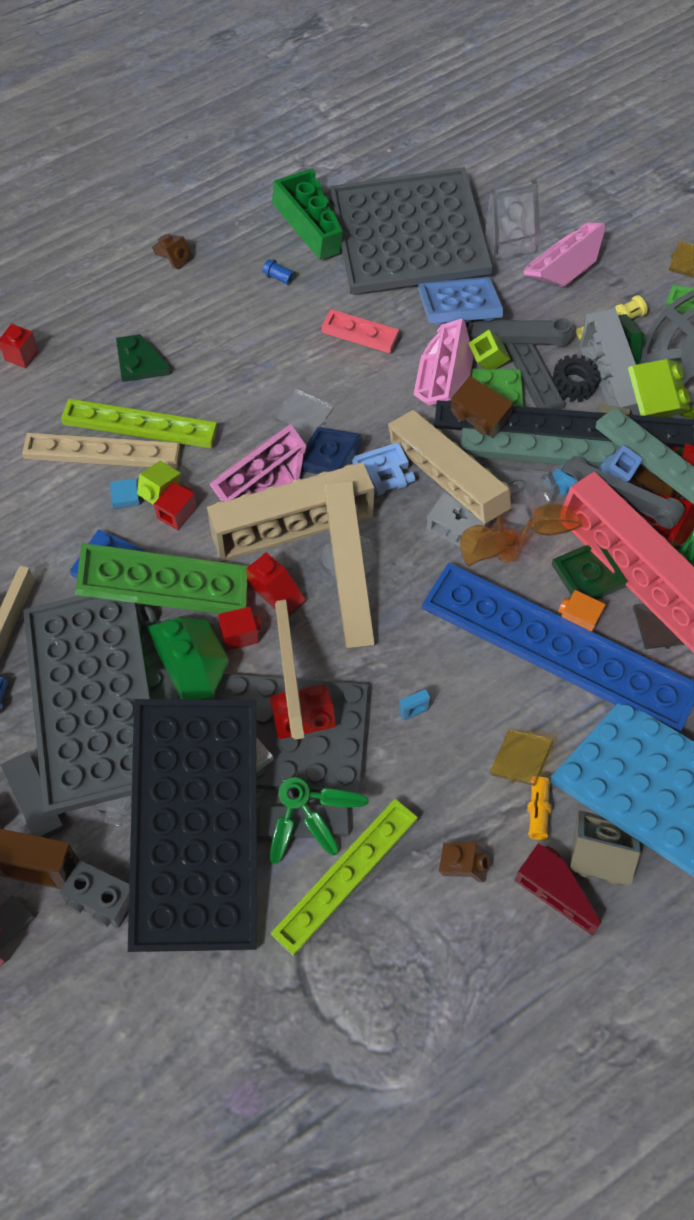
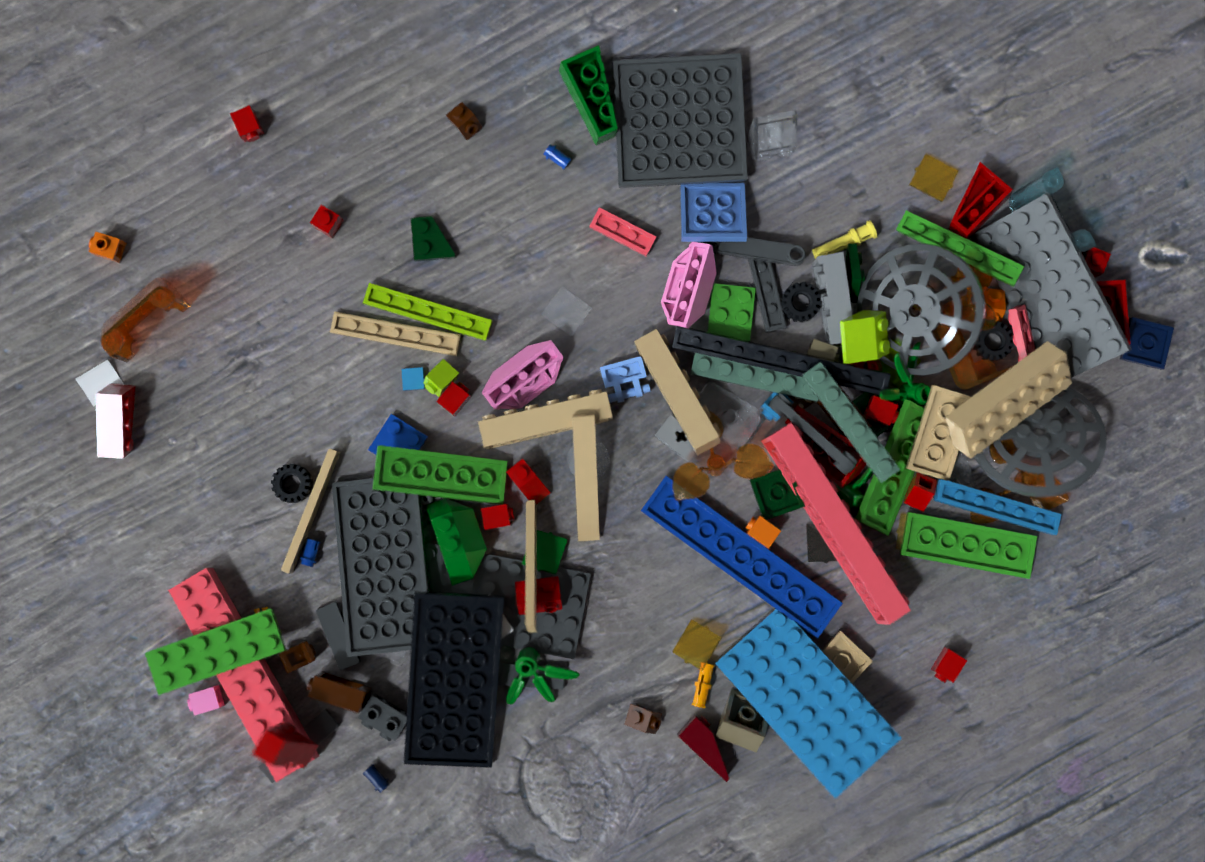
camera: 10 degrees right, 25 degrees up
(88, 985) = (376, 778): none -> dark blue pin
(310, 664) = (549, 552): none -> green piece
(330, 450) = (583, 358): dark blue tile -> none
(343, 877) = (558, 721): lime plate -> none
(414, 704) = (623, 595): dark azure tile -> none
(481, 407) = (710, 345): reddish brown brick -> none
(489, 350) = (730, 271): lime brick -> none
(568, 256) = (814, 170): bright pink wedge -> none
(621, 464) = (813, 414): medium blue leg -> none

